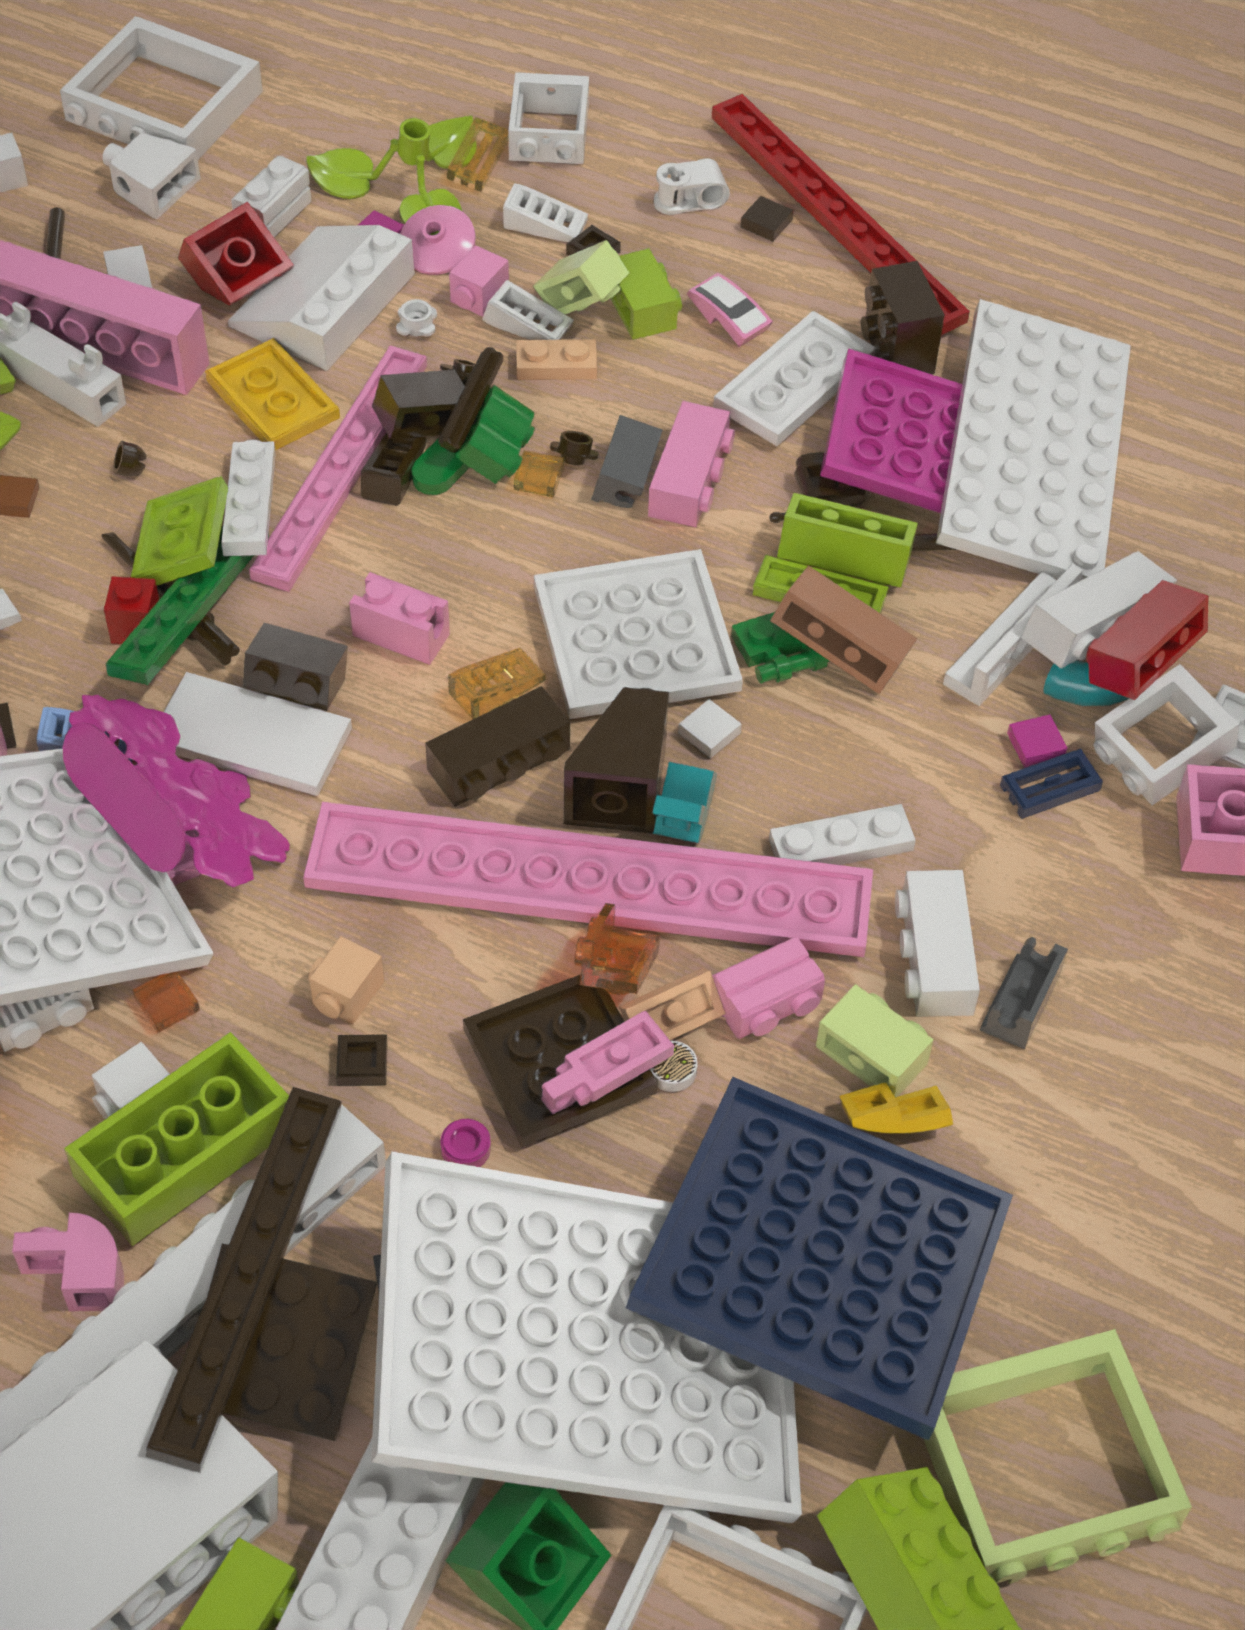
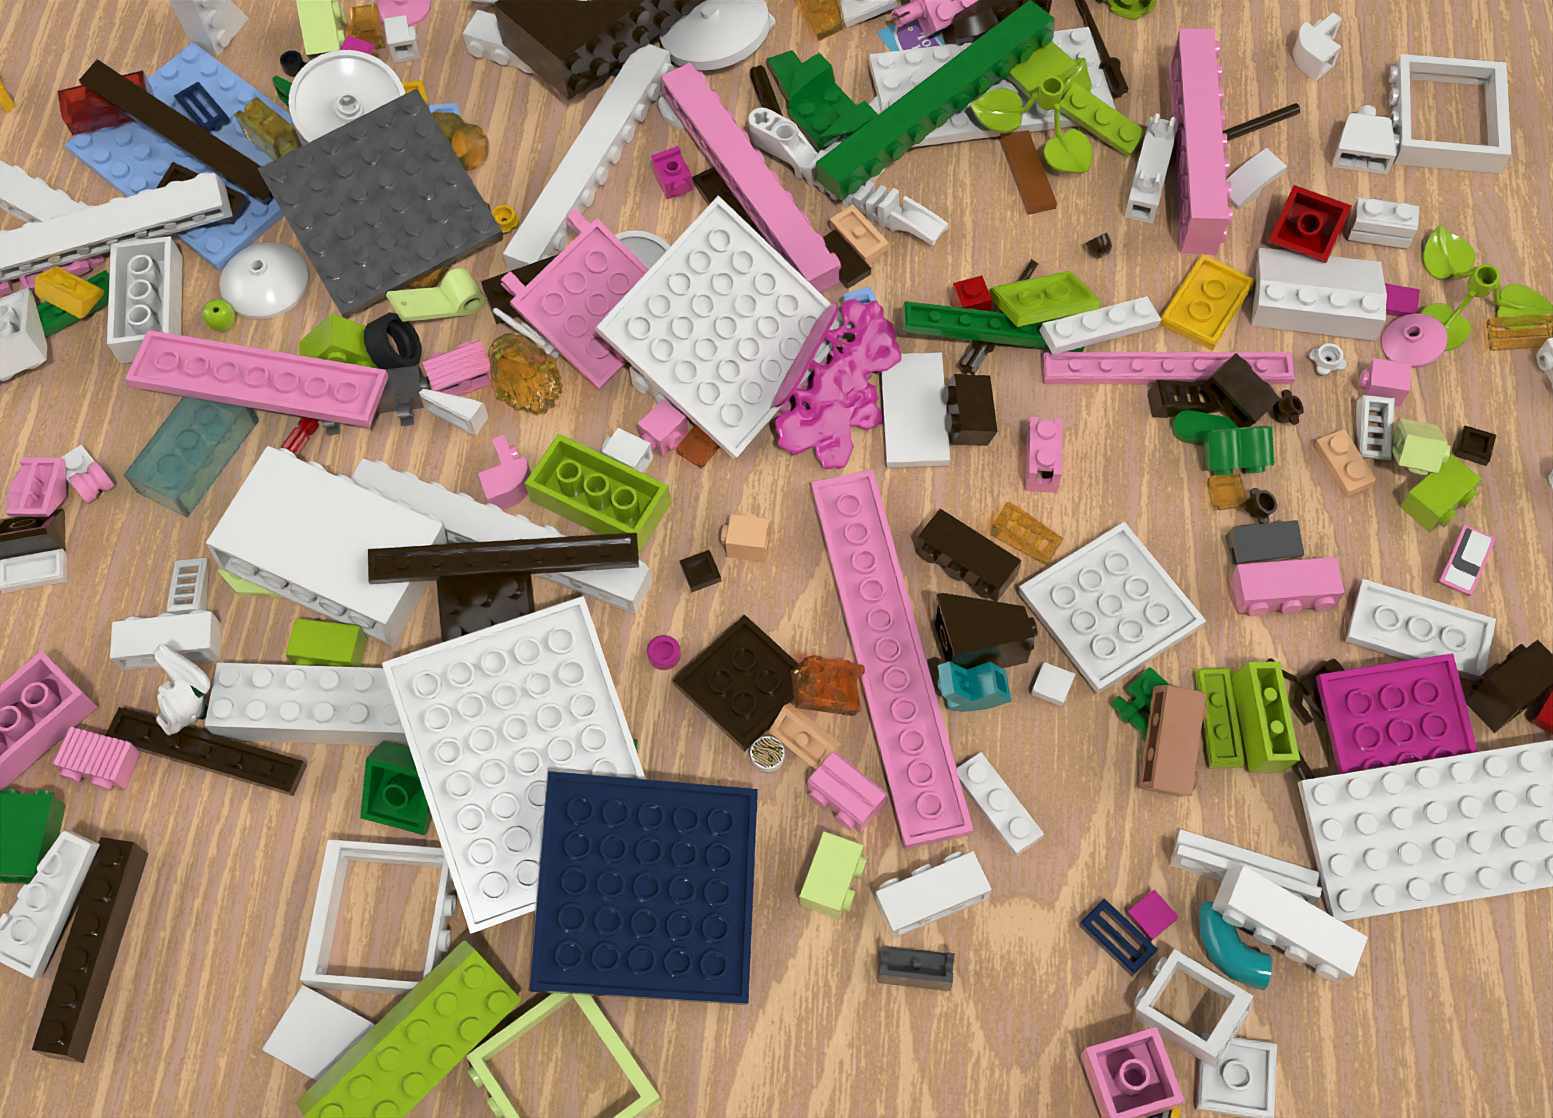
camera: 75 degrees right, 10 degrees up
(115, 1023) = (663, 428): none -> bright pink brick
(471, 400) = (1252, 418): dark brown axle -> none
(530, 214) = (1485, 379): white slope -> none
(607, 1063) = (739, 710): bright pink hinge -> none
(879, 1111) = (779, 899): yellow slope -> none
(1148, 639) = (1264, 964): red brick -> none

